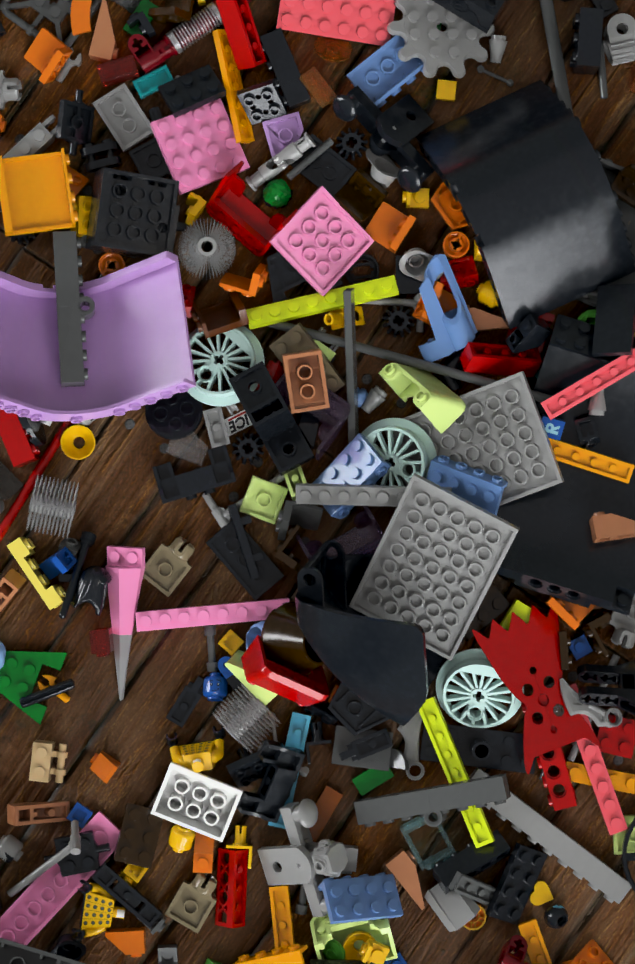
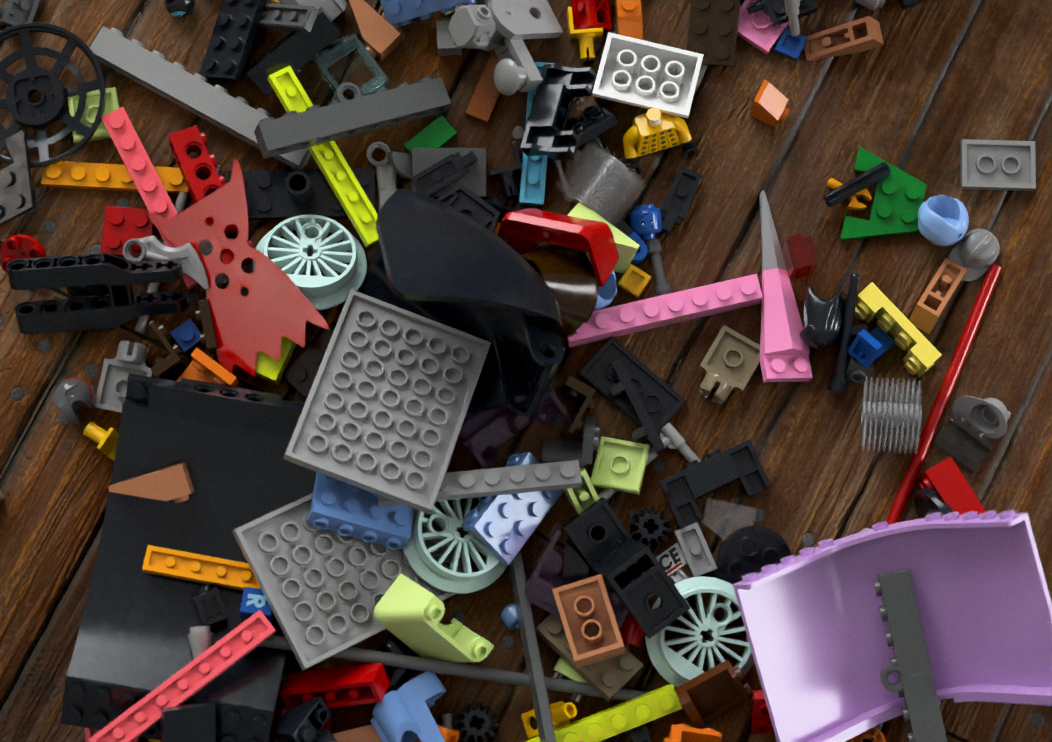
camera: 175 degrees right, 10 degrees down
(42, 761) = (848, 102): tan brick -> none
(70, 435) = (878, 493): yellow piece -> none
(181, 838) = (660, 31): yellow head -> none
(374, 399) = (494, 616): light grey cone -> none
(541, 893) = (201, 28): yellow tile -> none

